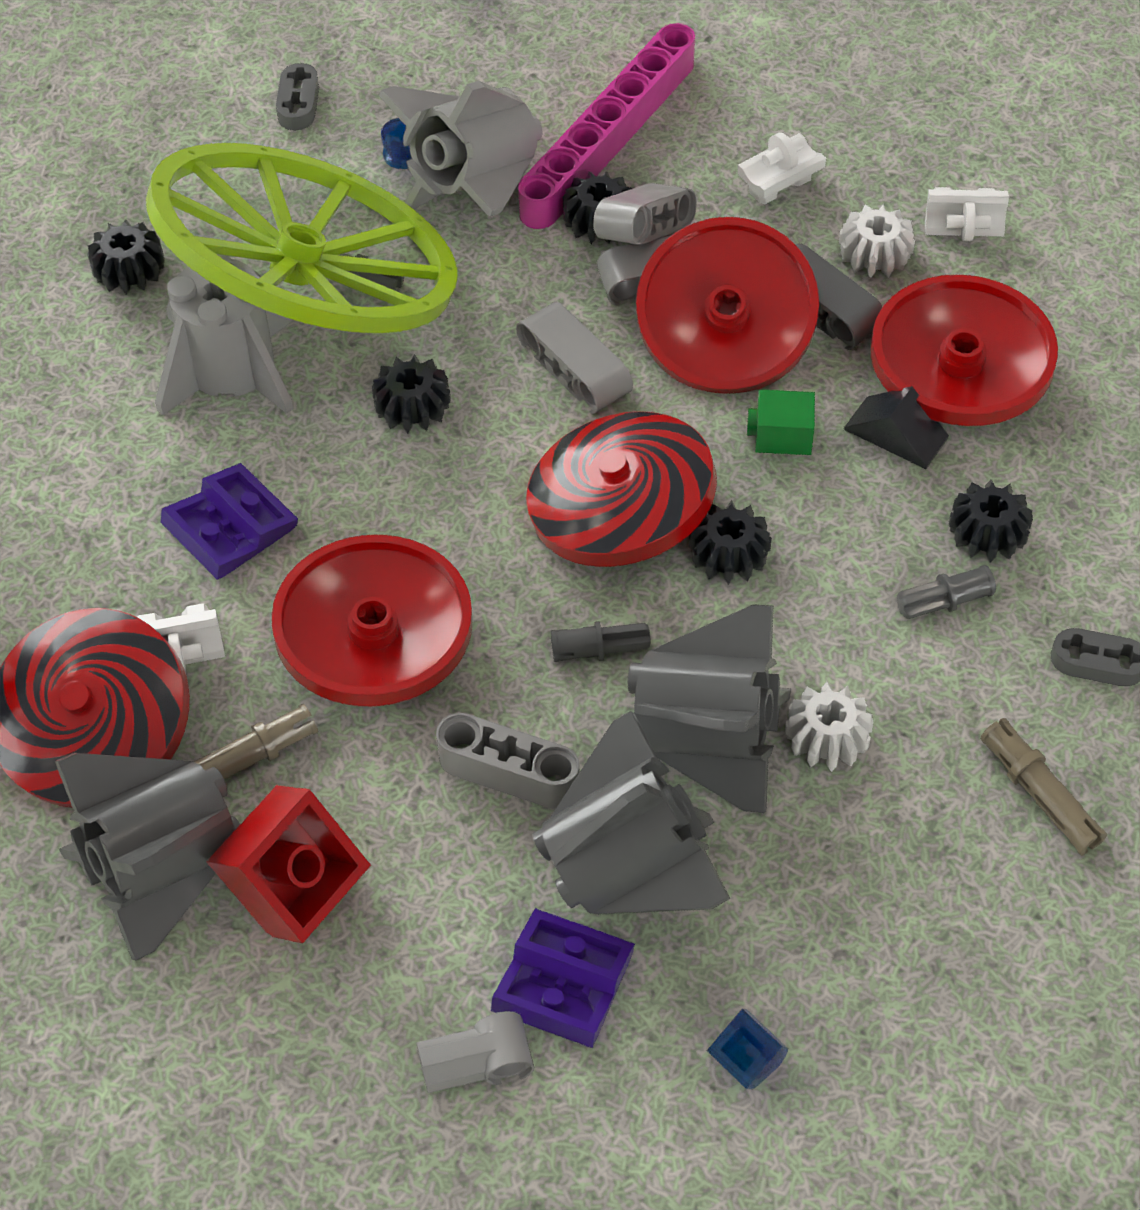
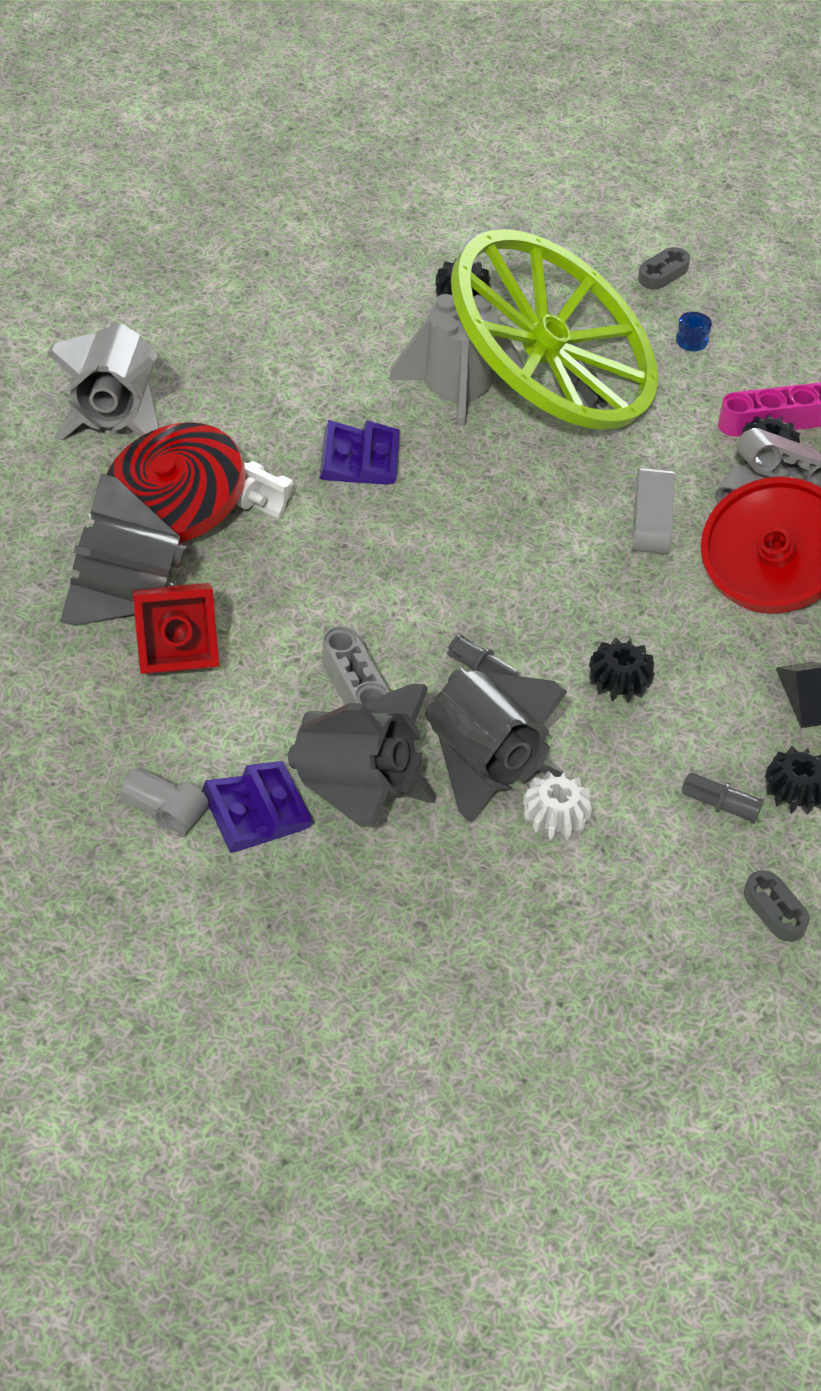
camera: 40 degrees right, 5 degrees down
(260, 743) = (241, 570): dark tan pin -> none
(372, 620) = (367, 552): red dish -> none
(411, 393) = (533, 461): black gear -> none
(466, 142) = (719, 347): light grey brick -> none
(621, 489) = (590, 594): dish -> none
(748, 1050) = (304, 920): clear blue brick -> none
(783, 422) = (736, 633): green brick -> none
(1030, 771) = (650, 925): dark tan pin -> none

